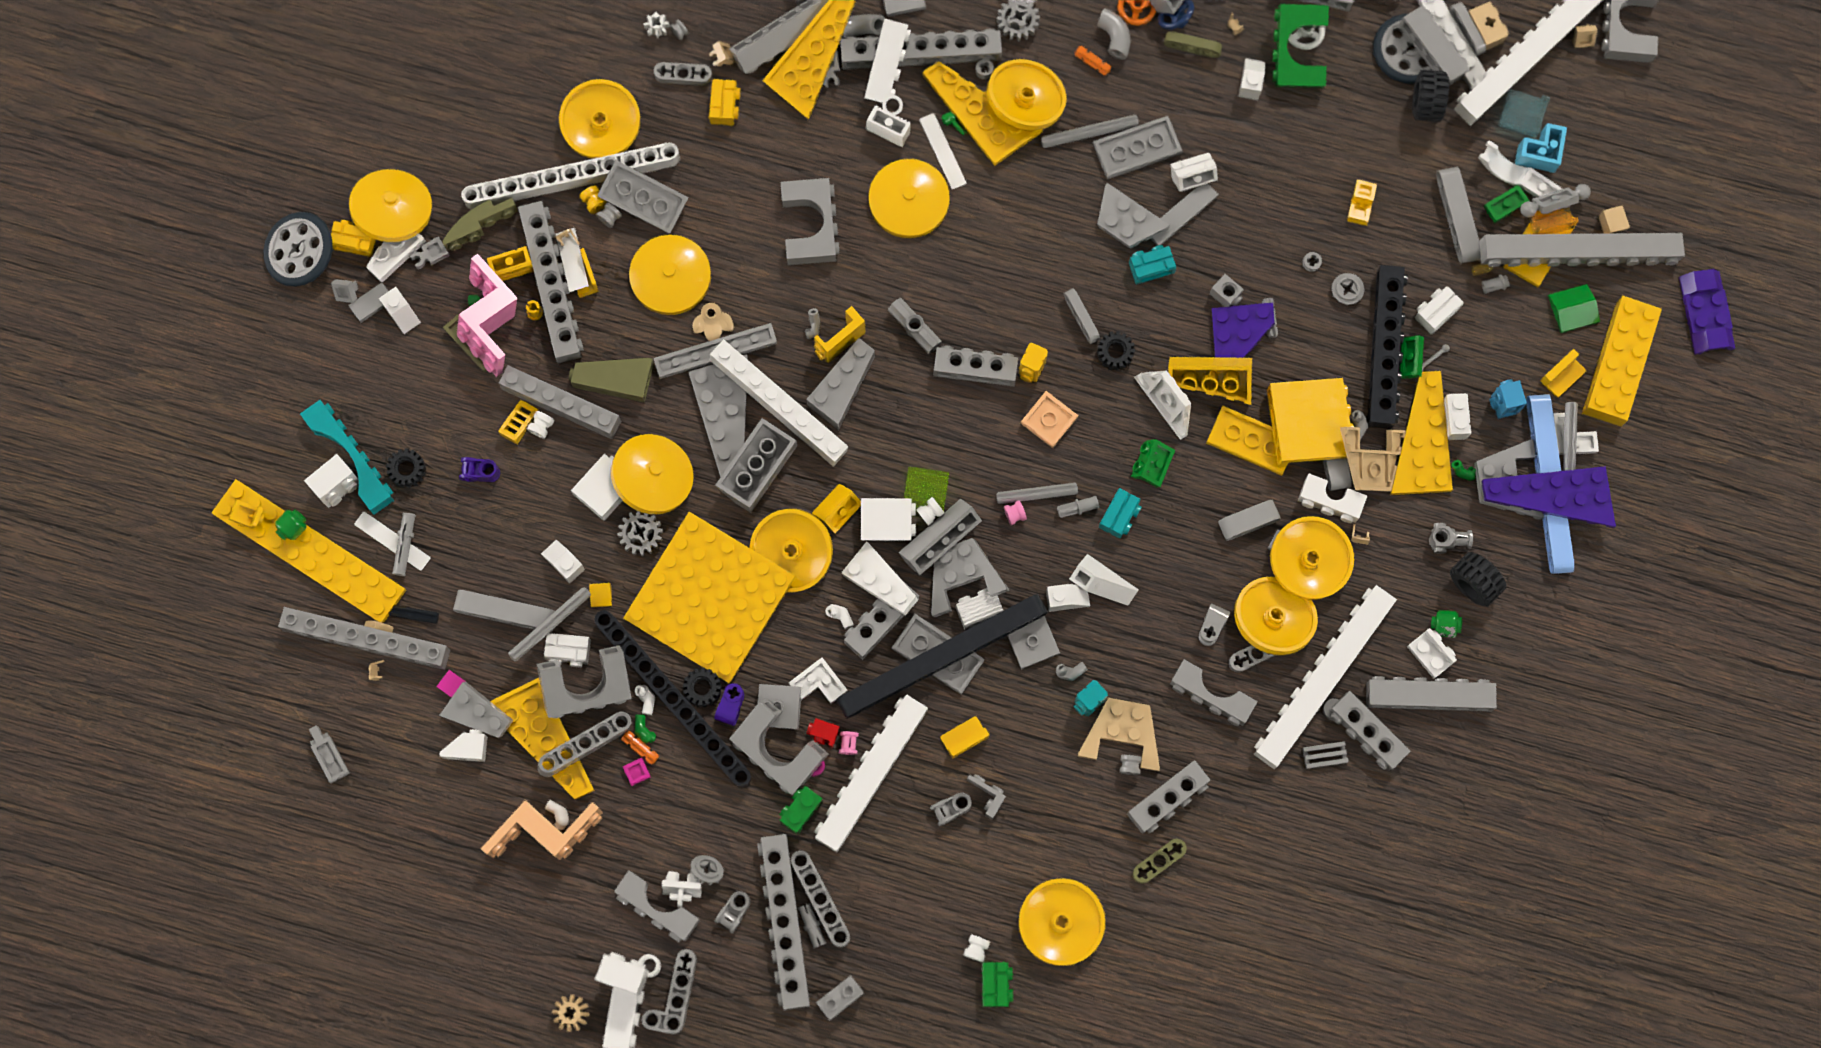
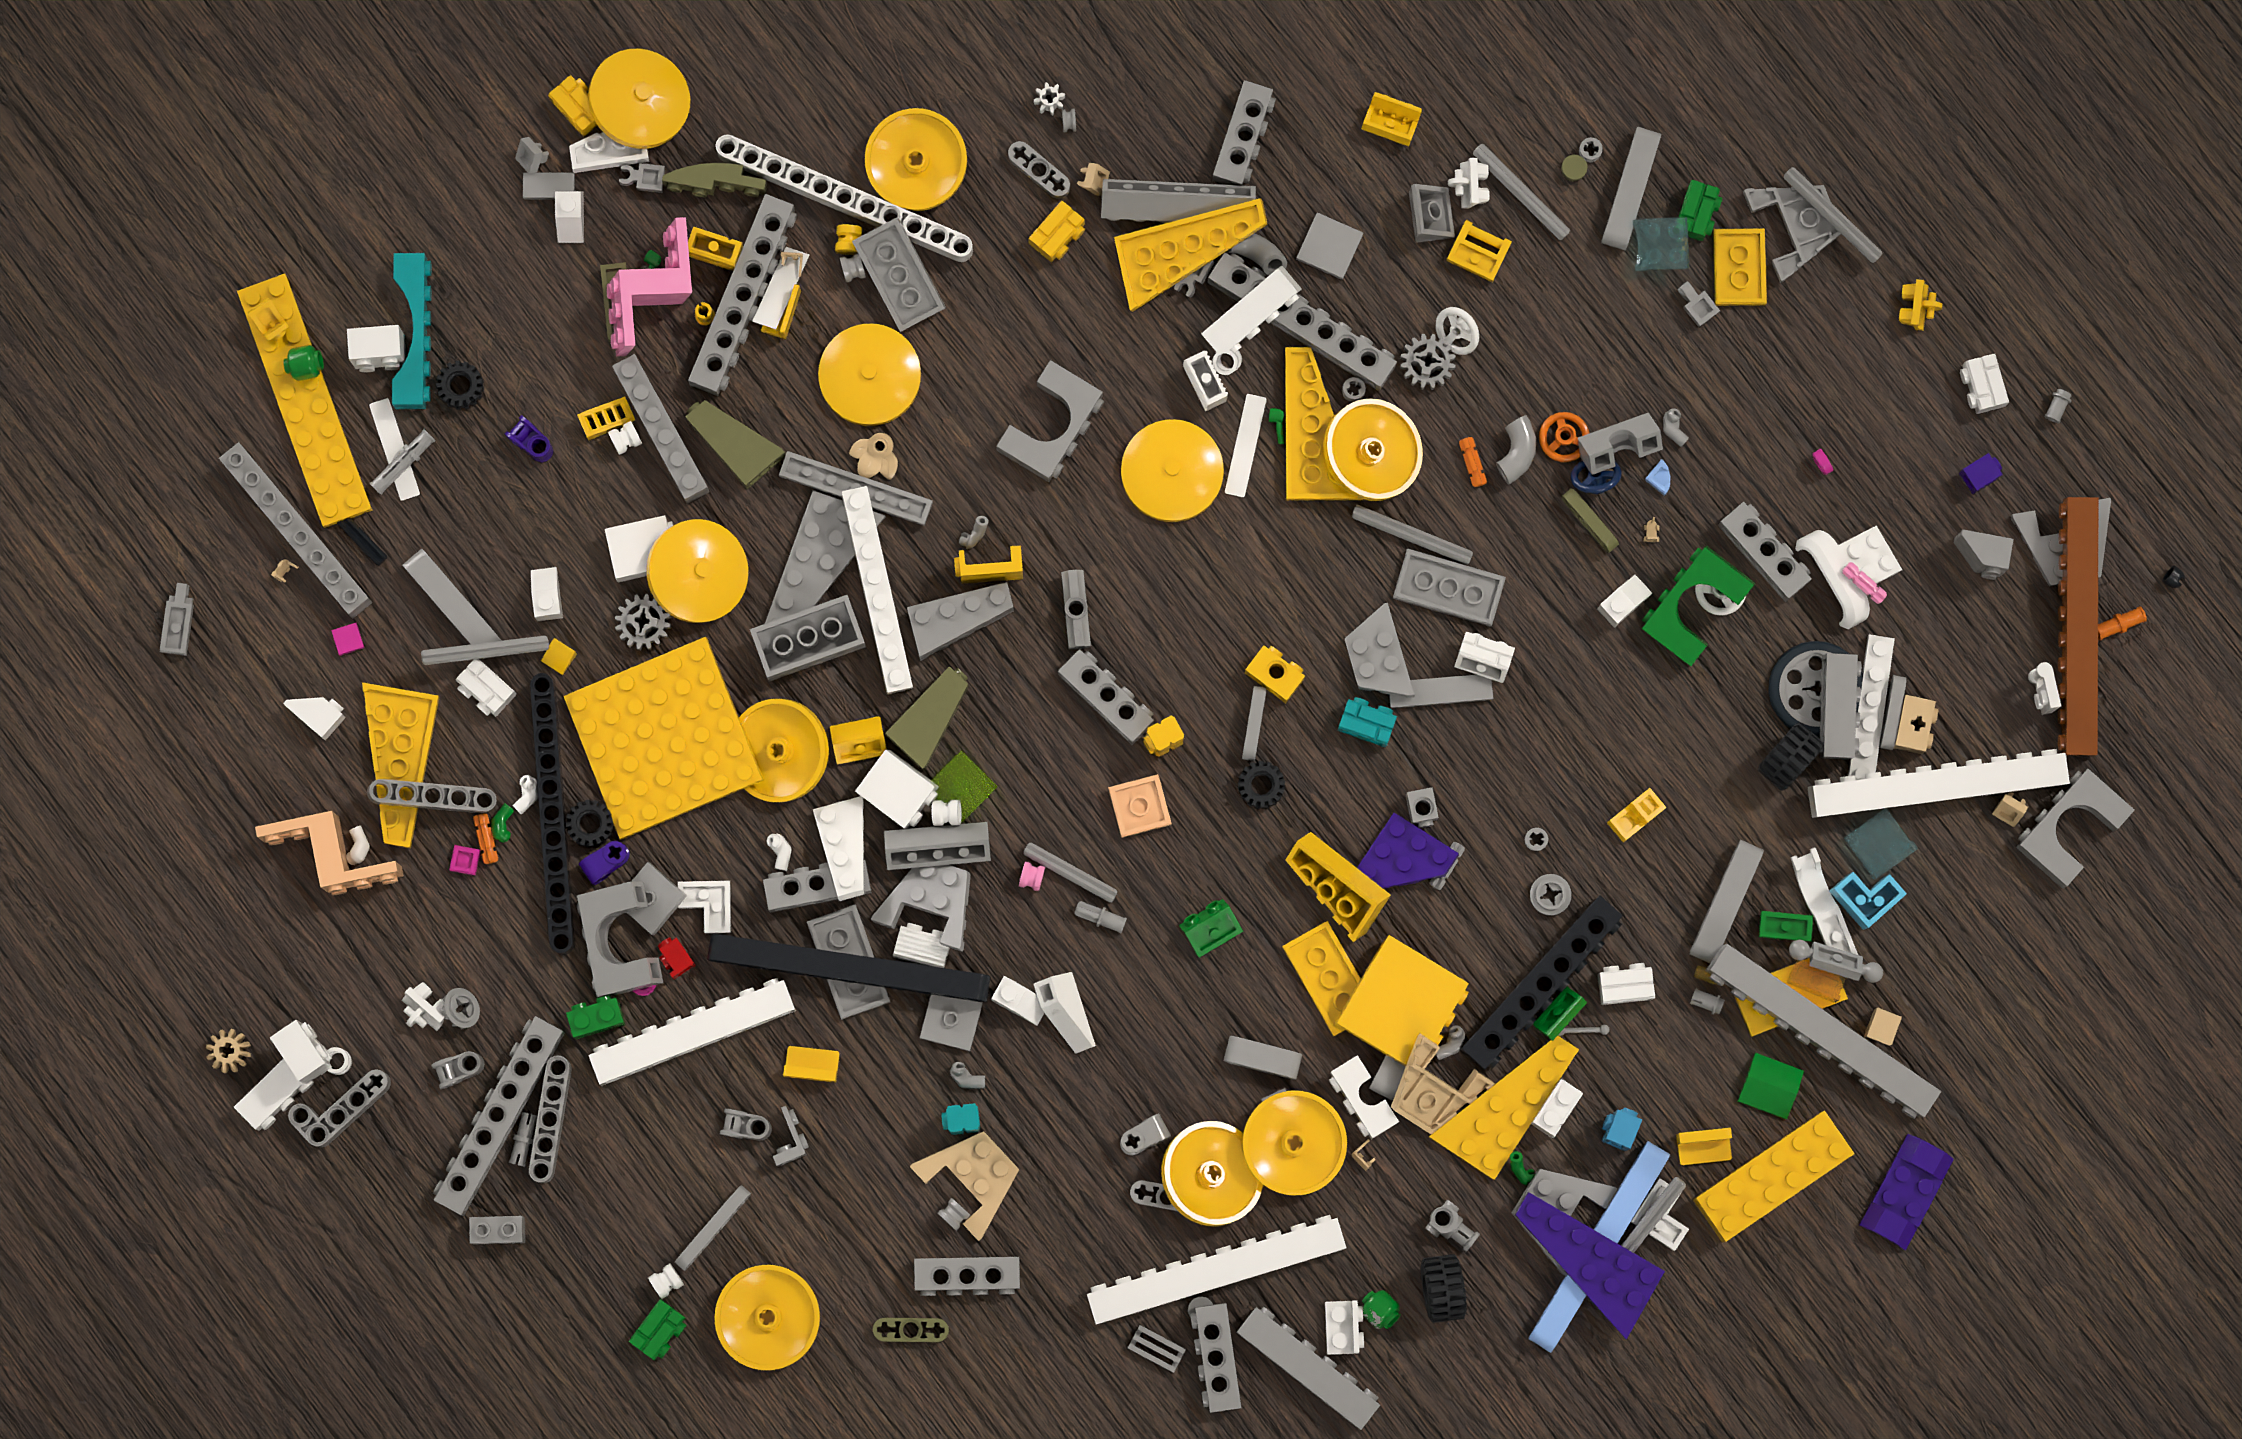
camera: 35 degrees right, 5 degrees up
(274, 243) = (496, 54): wedge -> none
(378, 625) = (317, 528): tan tile -> none
(476, 711) = (351, 685): light grey wing -> none
(612, 688) = (498, 760): light grey arch -> none
(634, 891) = (376, 976): light grey arch -> none
(848, 743) = (700, 983): bright pink bush -> none
(872, 462) = (926, 721): none -> olive slope
(981, 890) = (713, 1227): none -> light grey beam
(1061, 282) = (1259, 671): none -> yellow brick
(1120, 513) = (1137, 955): teal brick -> none
(1168, 399) = (1273, 874): white wing -> none
(1189, 681) = (1103, 1235): light grey arch -> none

